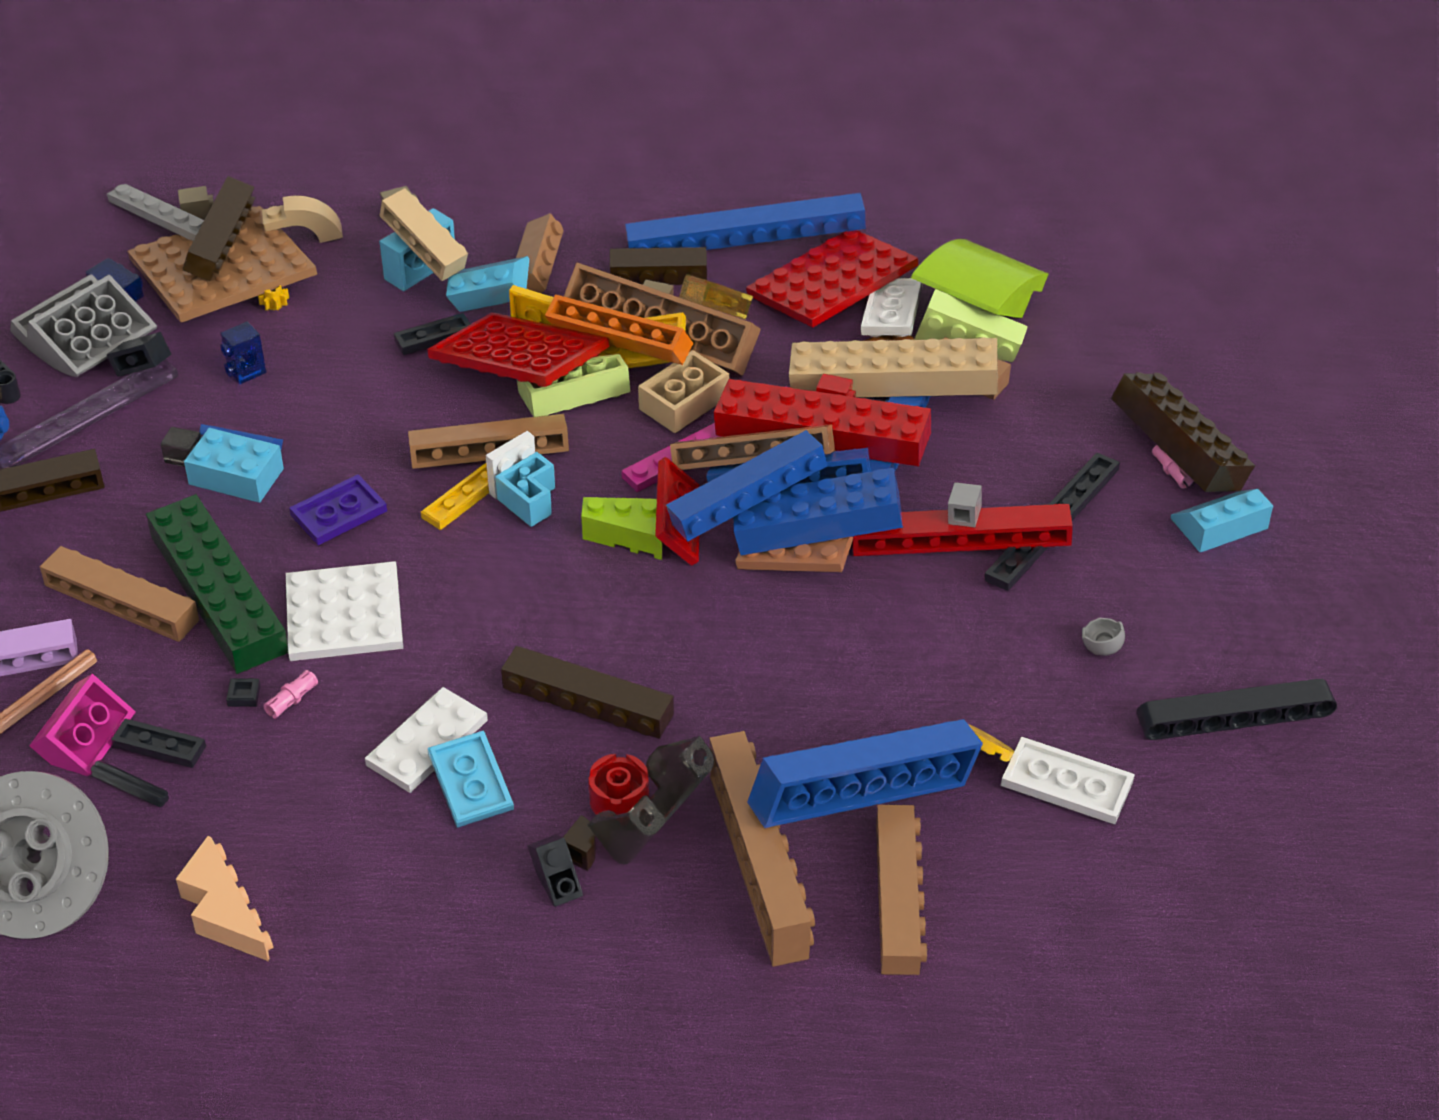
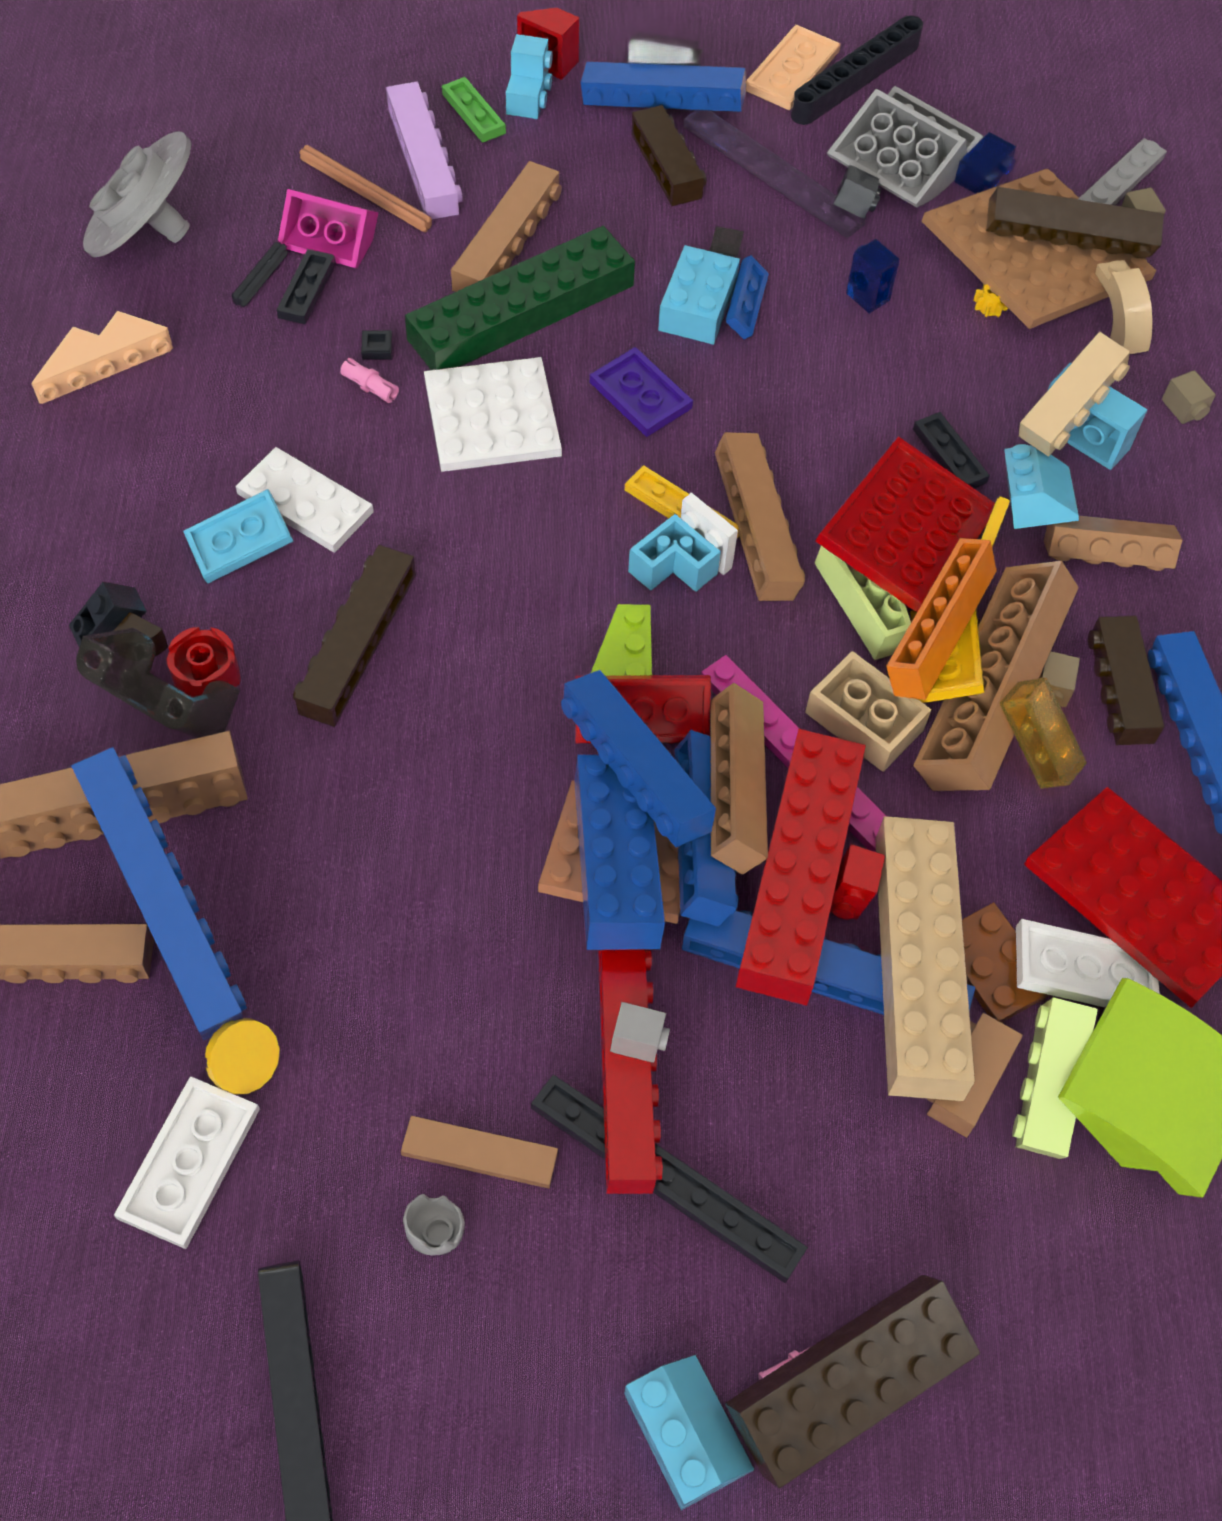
camera: 85 degrees right, 15 degrees up
(1042, 619) = (479, 1152): none -> medium nougat tile

